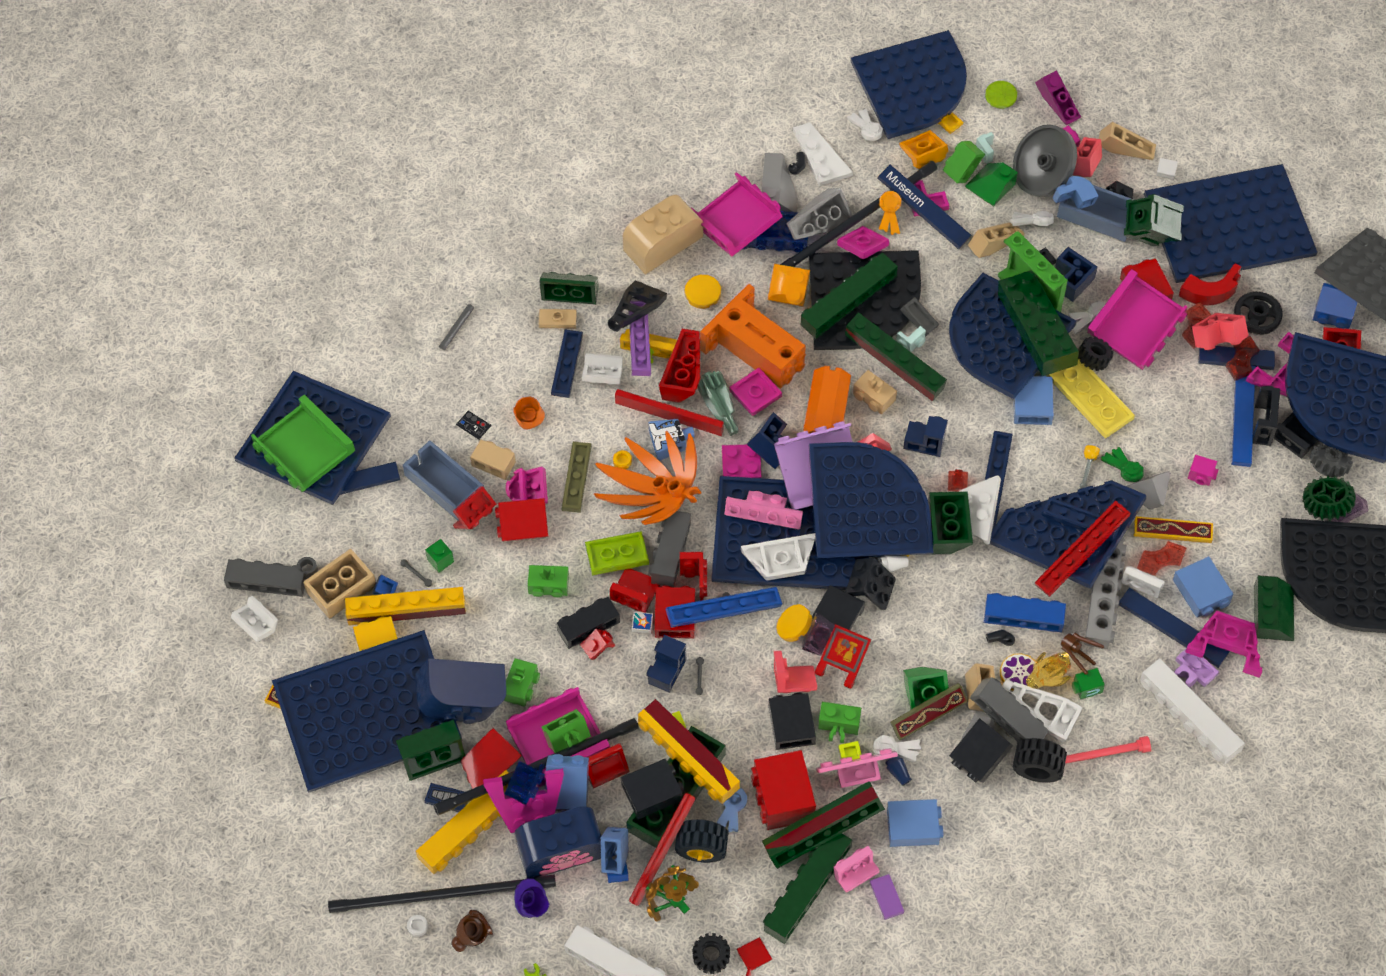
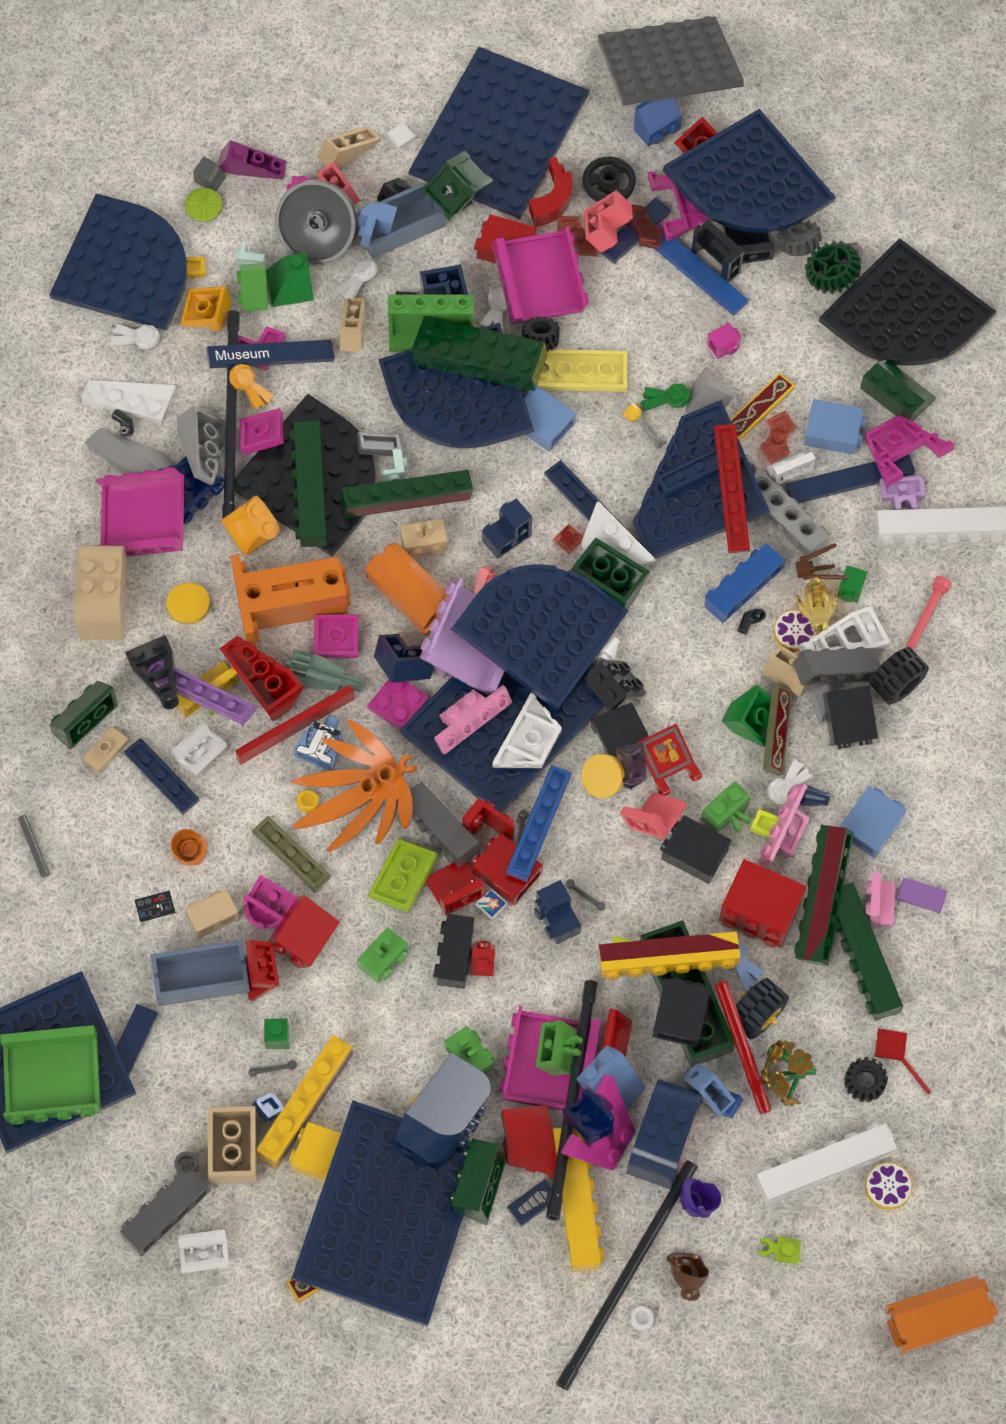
camera: 55 degrees left, 5 degrees up
(1025, 80) = (208, 174): none -> dark grey brick

